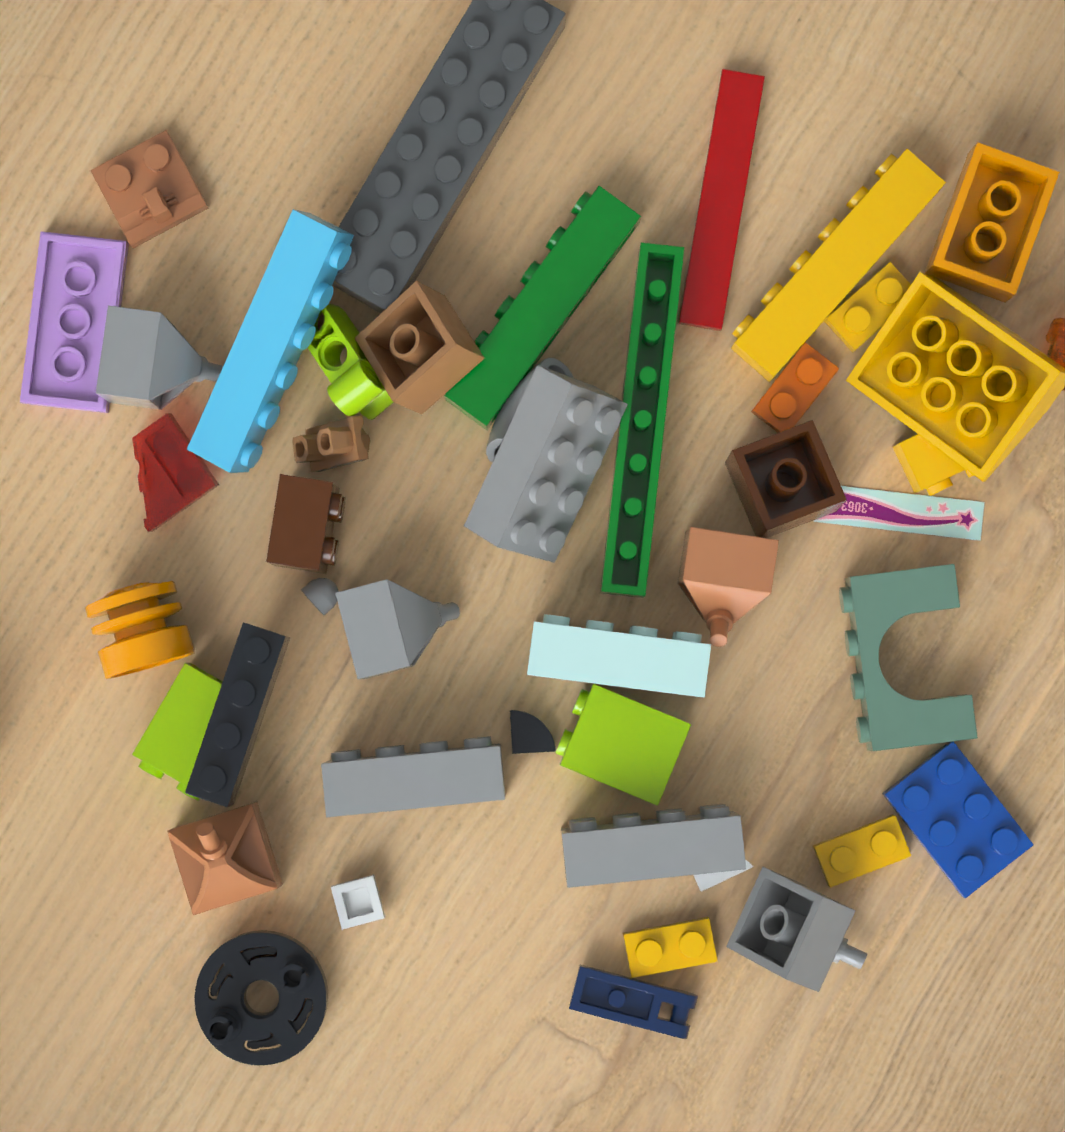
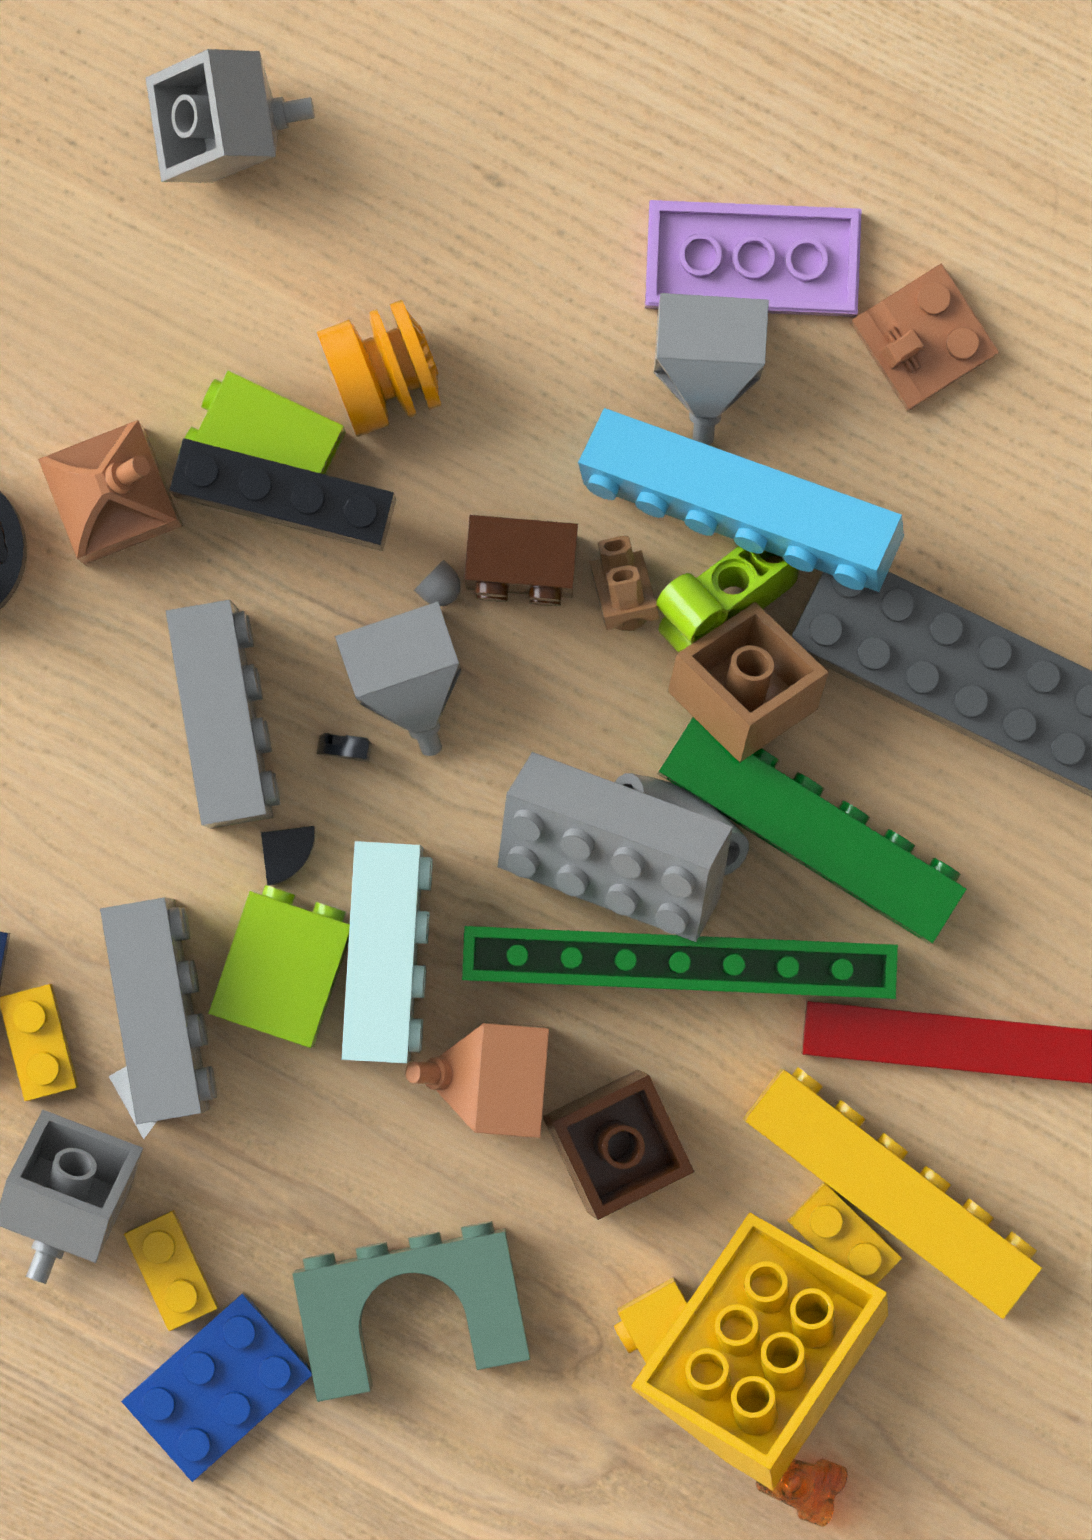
camera: 90 degrees right, 0 degrees up
(168, 471) = (576, 387): clear red wing -> none
(358, 902) = (68, 657): white plate -> none
(447, 681) = (344, 747): none -> black tile
(795, 389) = (734, 1150): orange plate -> none
(909, 513) = (591, 1302): sticker -> none
(992, 222) = (958, 1380): light orange brick -> none

